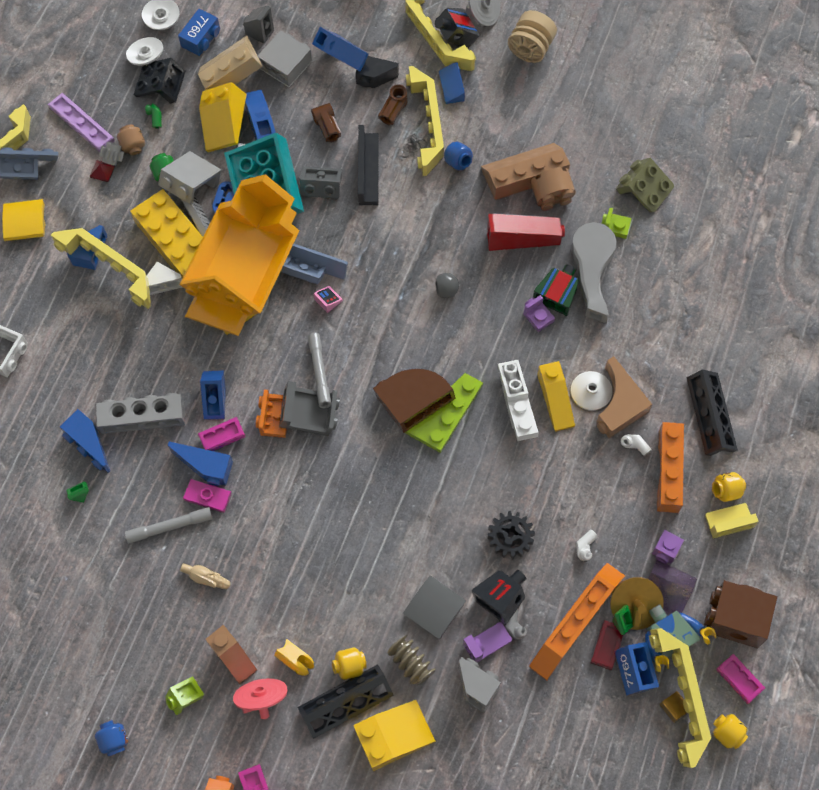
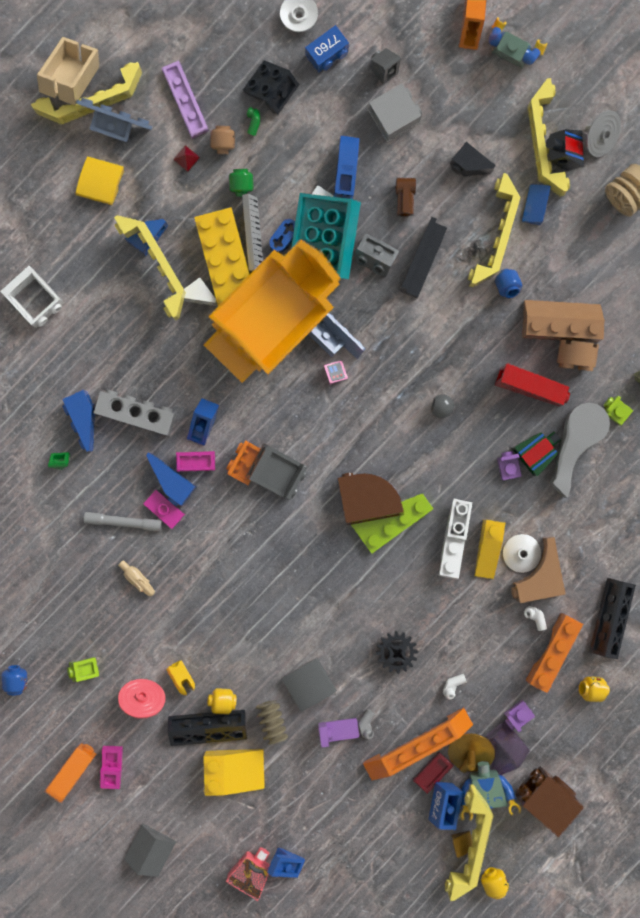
camera: 20 degrees right, 20 degrees up
(111, 153) = (200, 147): light grey gear -> none
(144, 51) = (269, 49): white dish -> none
(187, 175) = (259, 203): light grey panel -> none
(221, 116) = (312, 152): yellow slope -> none
(230, 65) = (339, 101): tan slope -> none
(231, 654) = (130, 656): medium nougat slope -> none
(322, 389) = (295, 460): light grey piece -> none
(340, 48) = (448, 127): blue slope -> none
(393, 105) = (472, 205): reddish brown piece -> none
(477, 686) = (314, 768): light grey slope -> none
(501, 594) = (366, 699): black torso -> none
(623, 620) = (453, 762): green slope -> none
(730, 520) = (581, 715): light yellow panel -> none
(740, 678) = (523, 845): dark pink plate -> none

